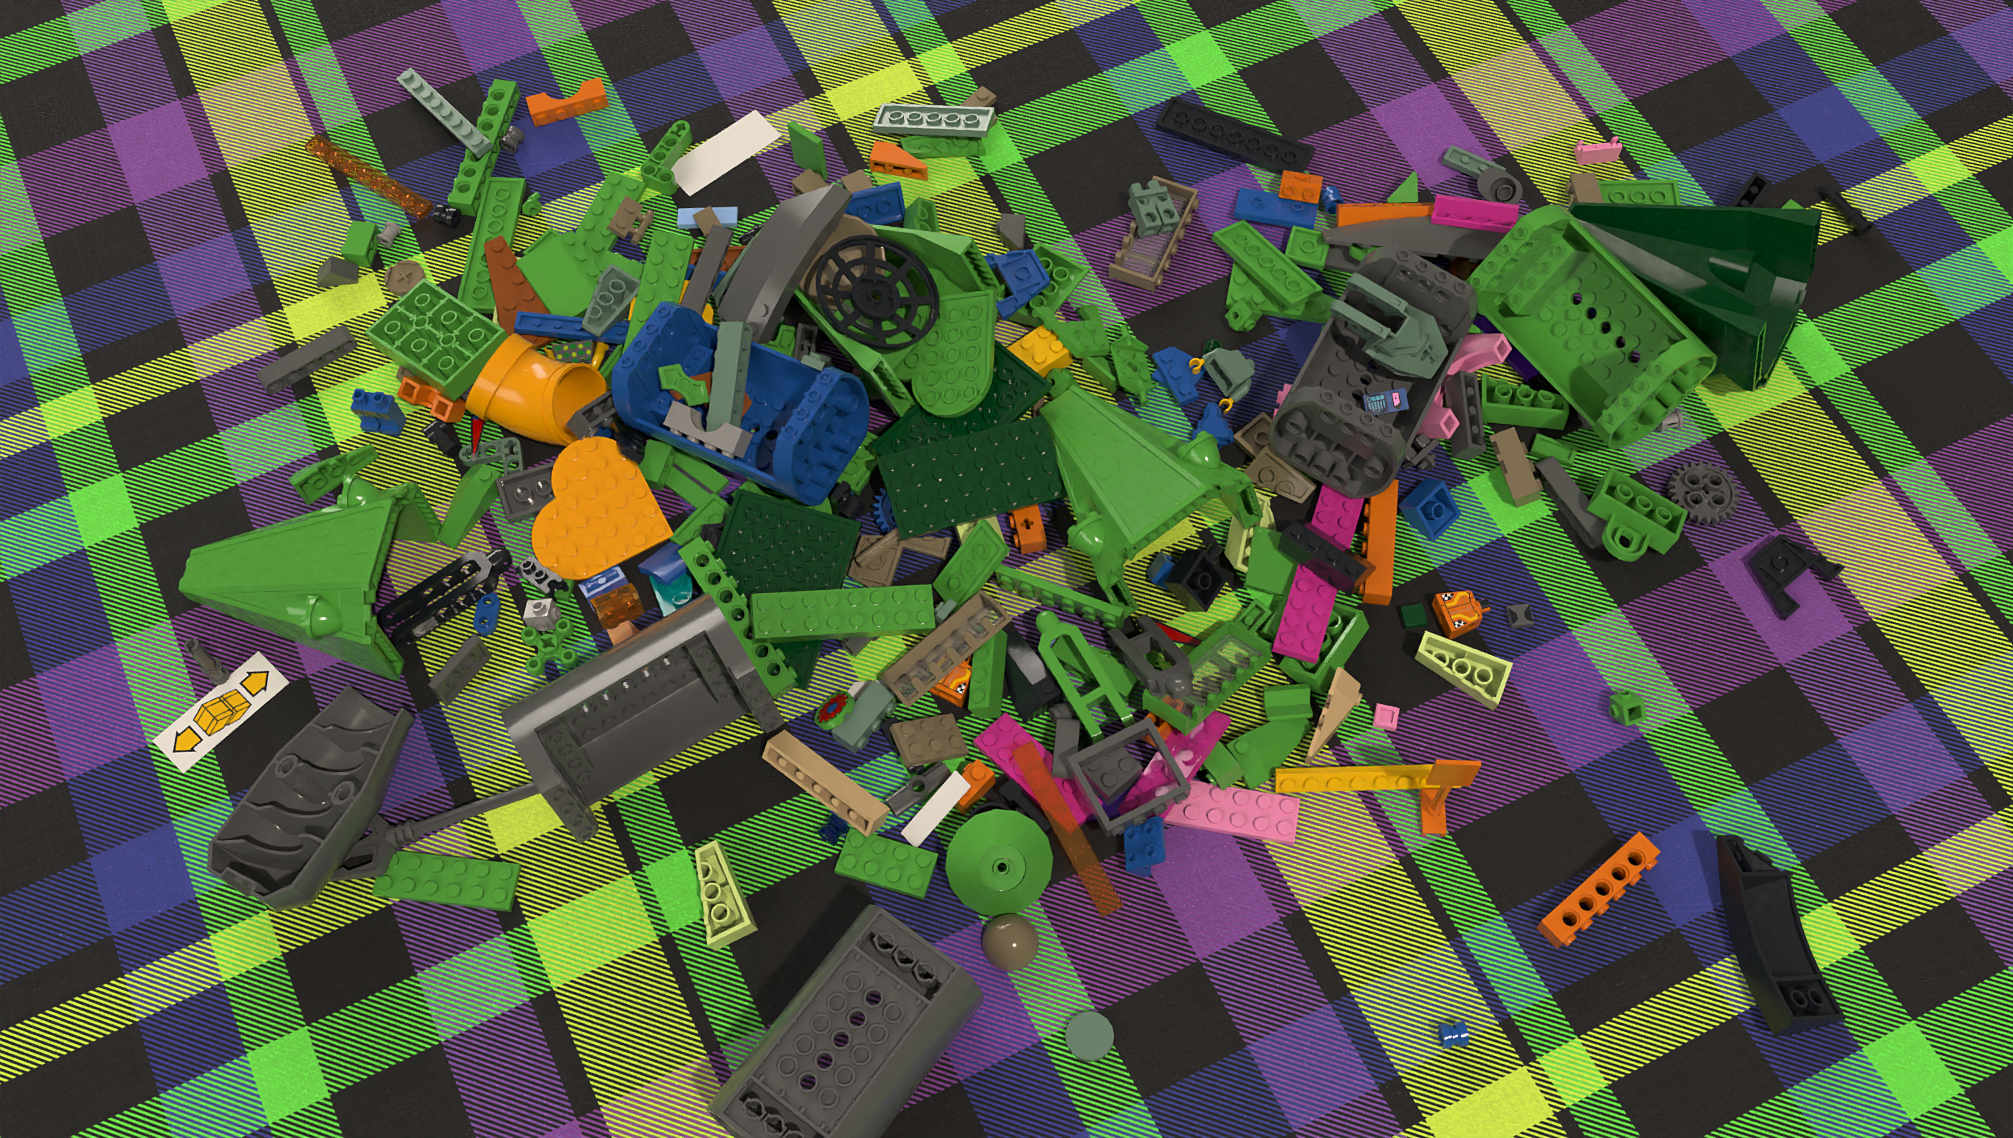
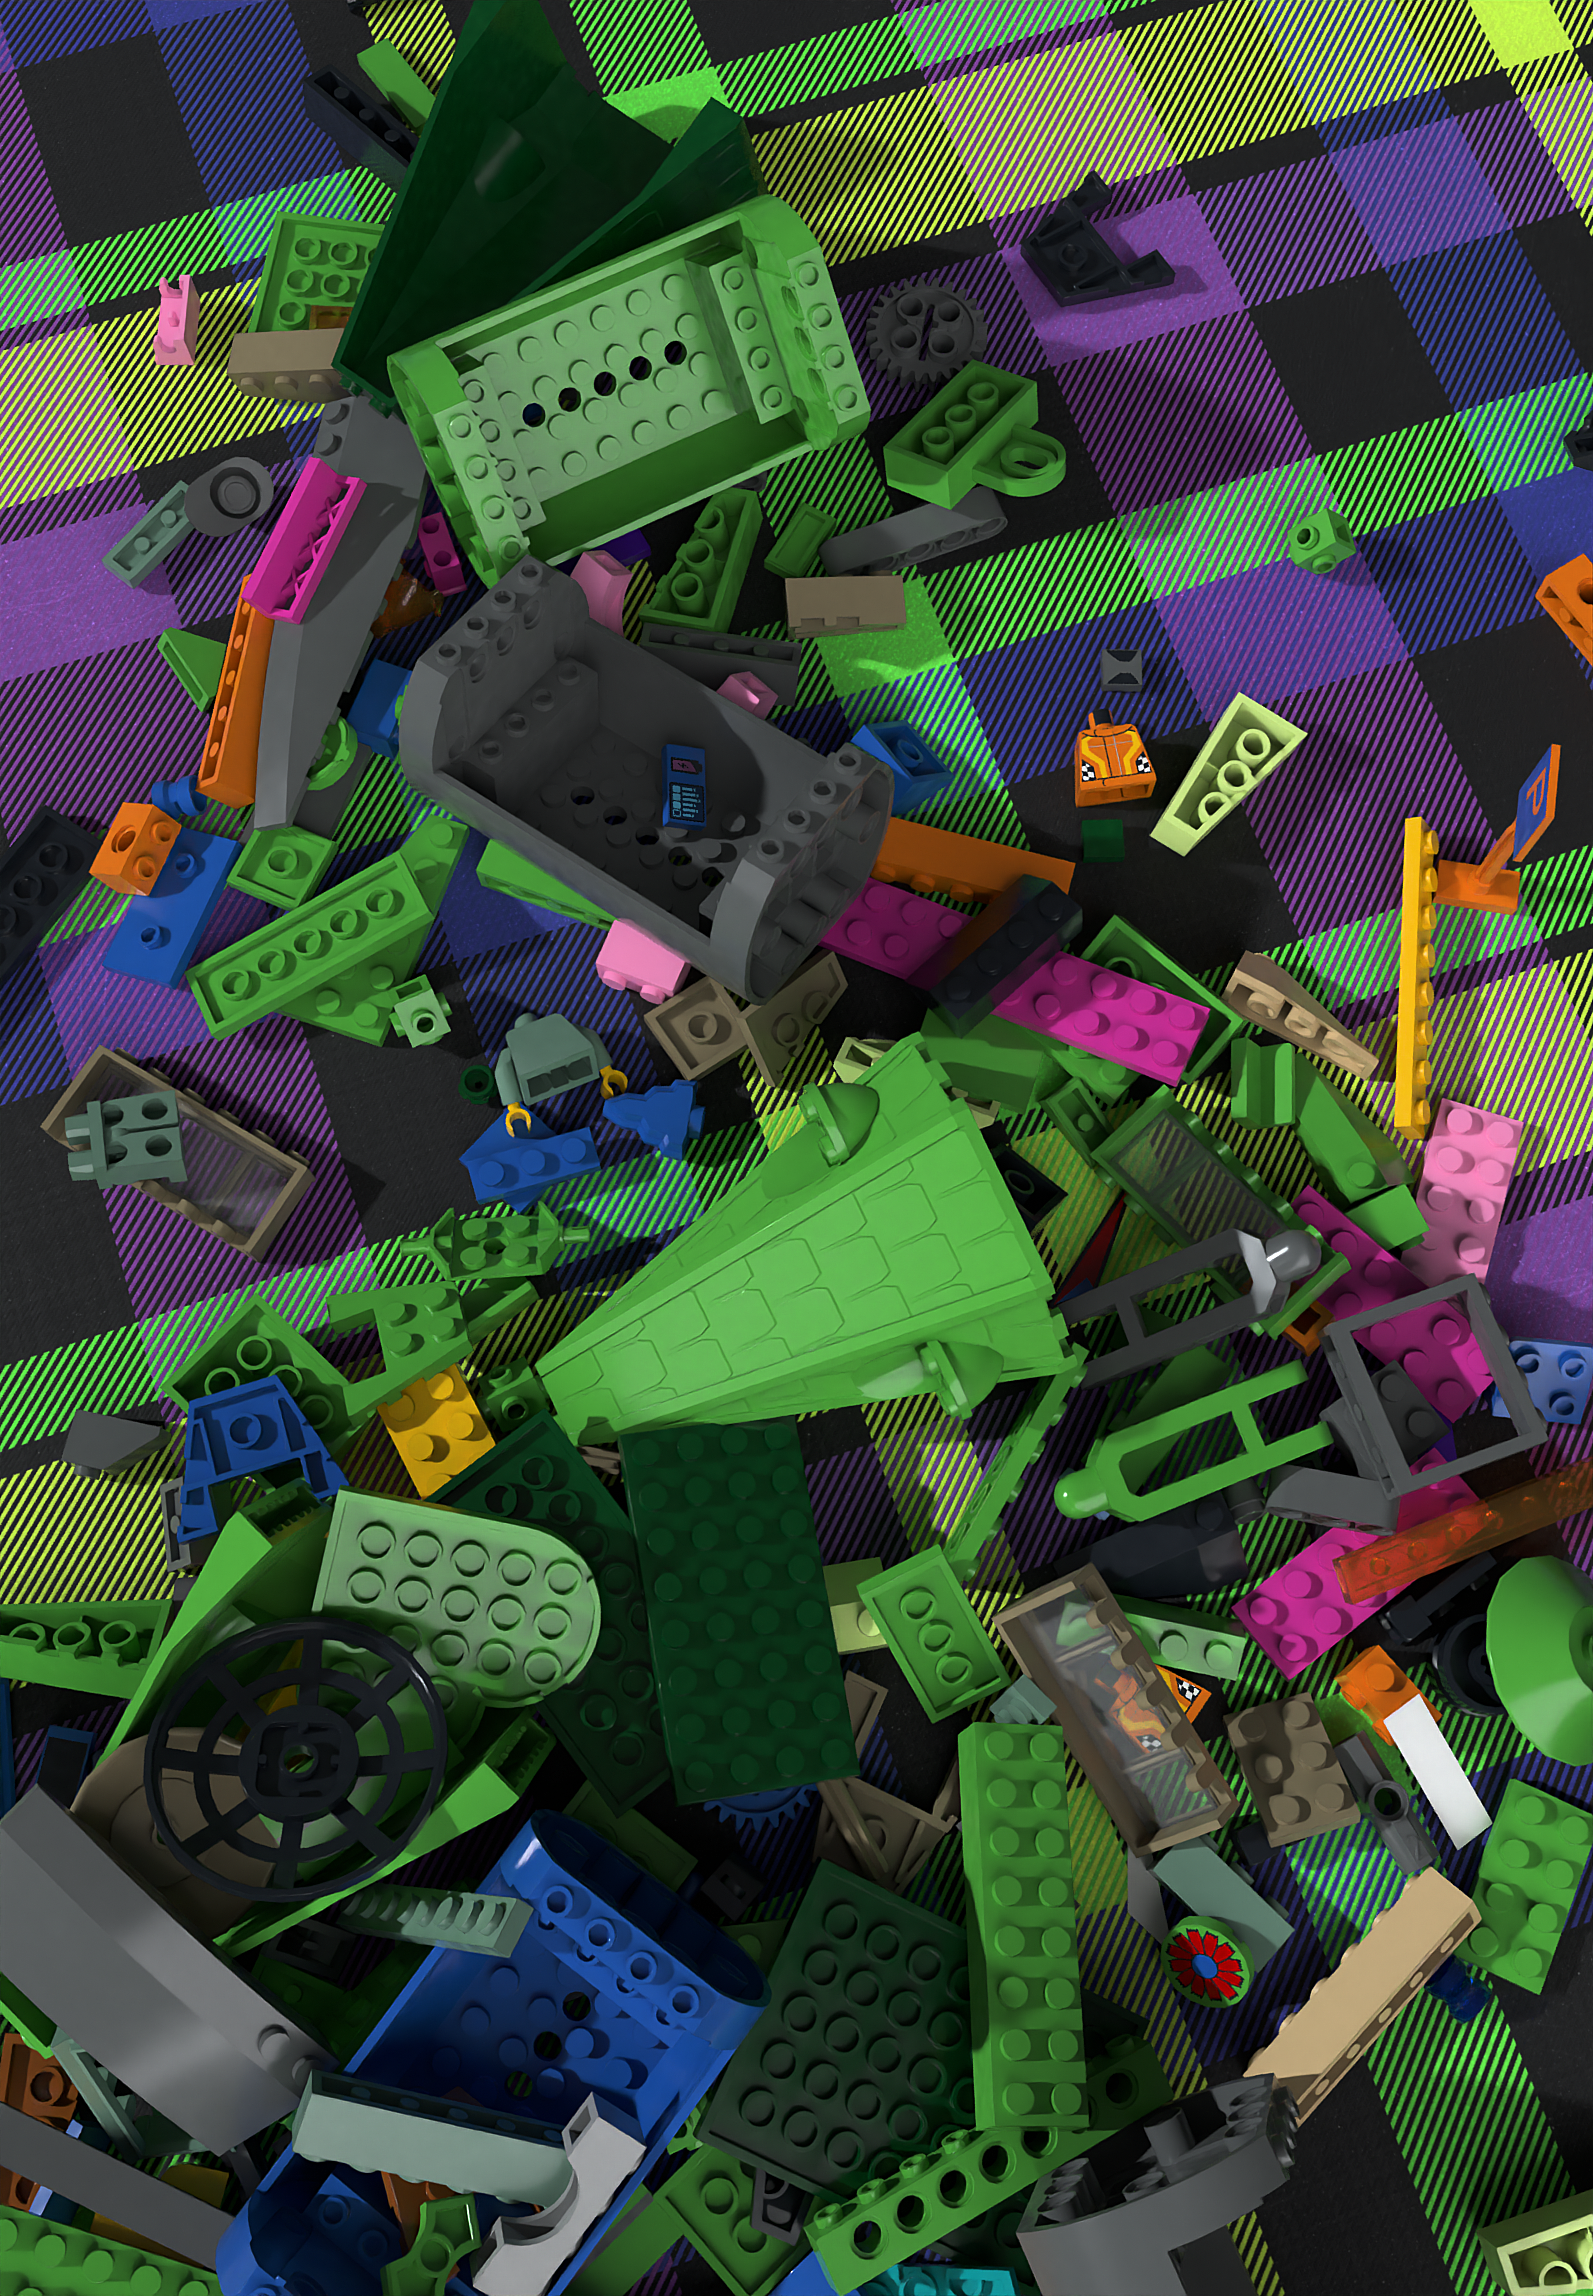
camera: 85 degrees left, 10 degrees up
(1033, 538) = (854, 1493): orange brick -> none
(1386, 717) = (1293, 926): bright pink tile -> none
(1412, 350) = (600, 697): sand green connector -> none

